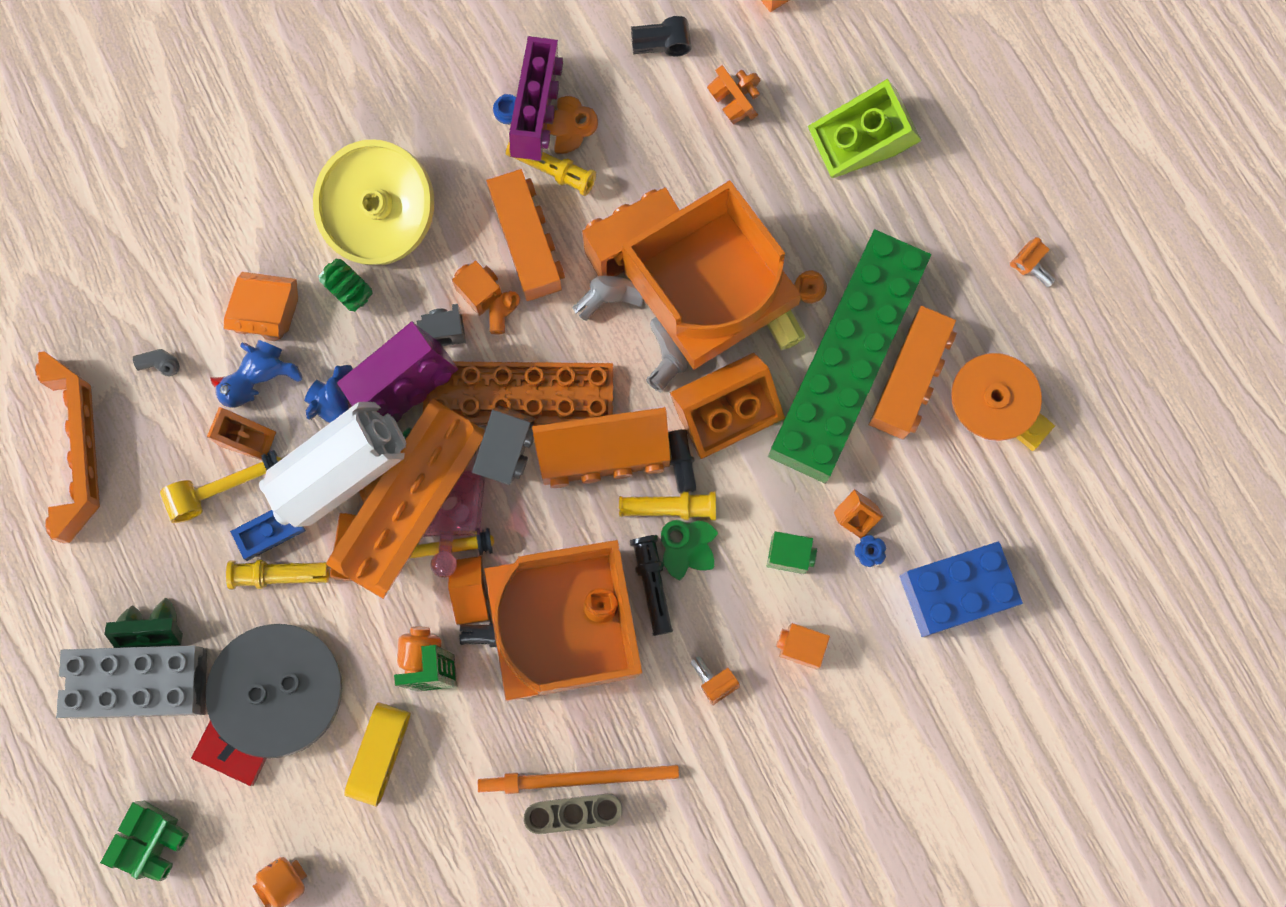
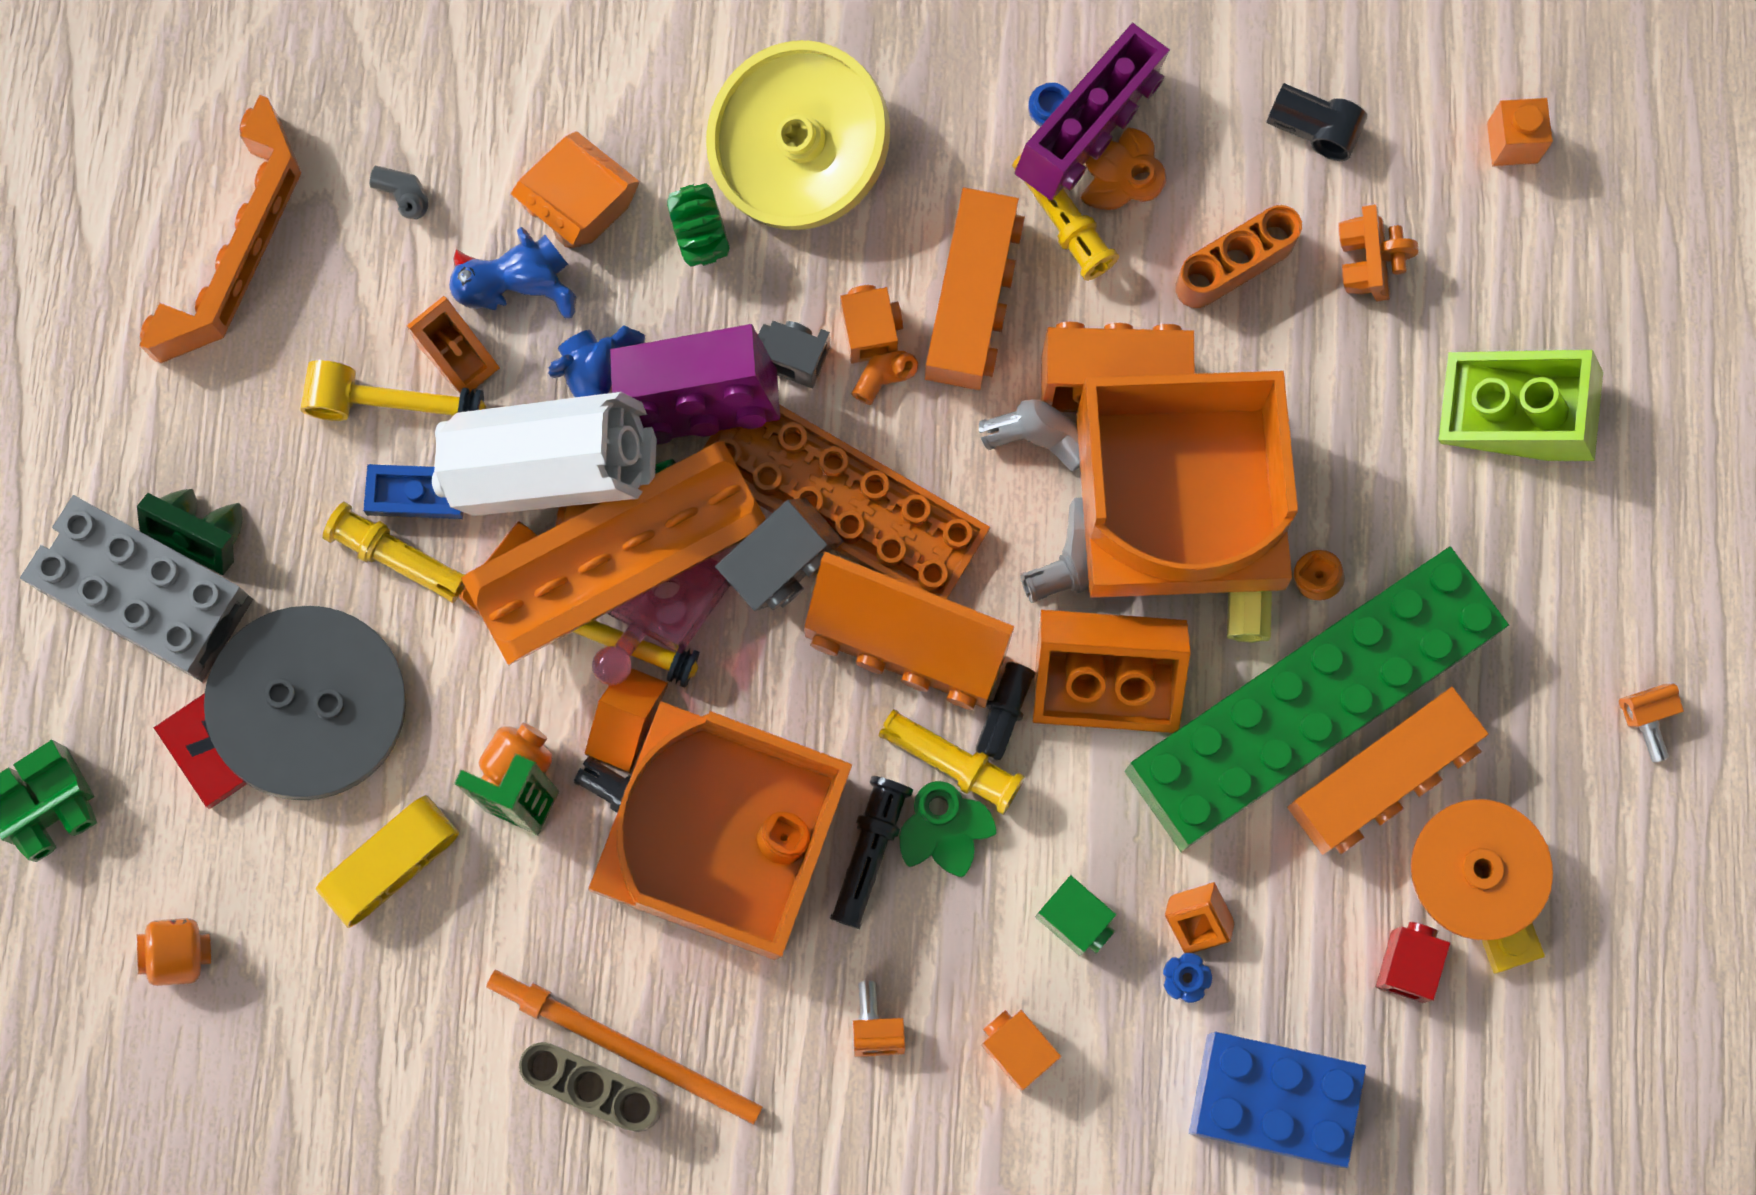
camera: 30 degrees right, 0 degrees up
(666, 123) = (1248, 238): none -> orange beam
(988, 470) = (1413, 962): none -> red brick

